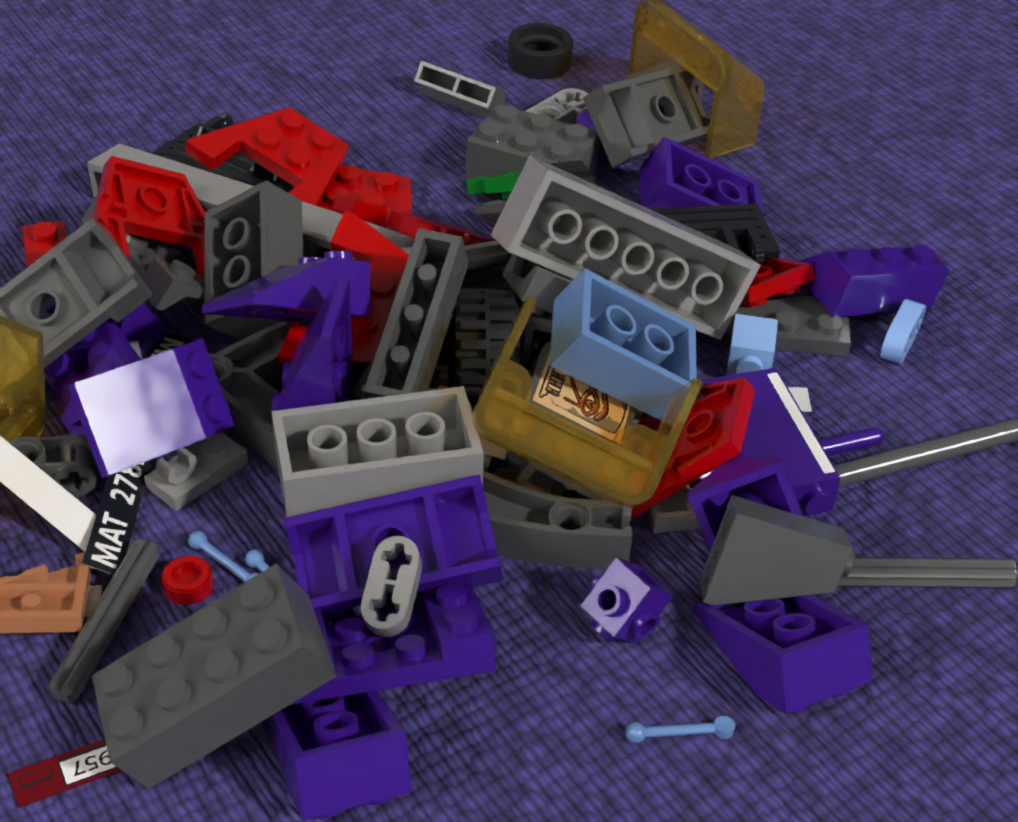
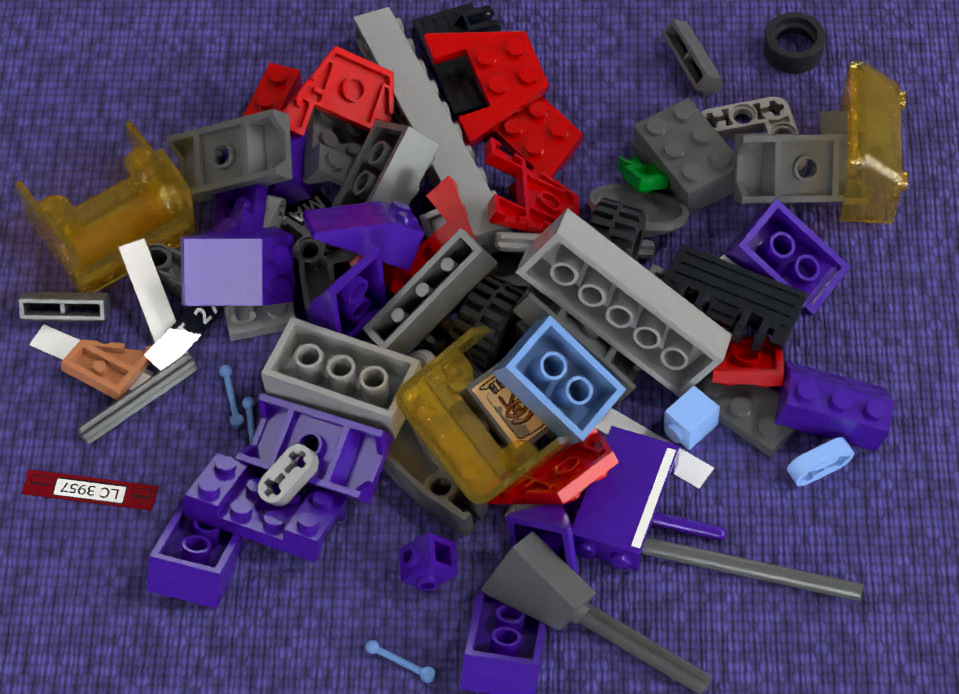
camera: 40 degrees right, 15 degrees up
(187, 580) = (200, 397): red tile -> none
(211, 677) = (146, 478): dark grey brick -> none

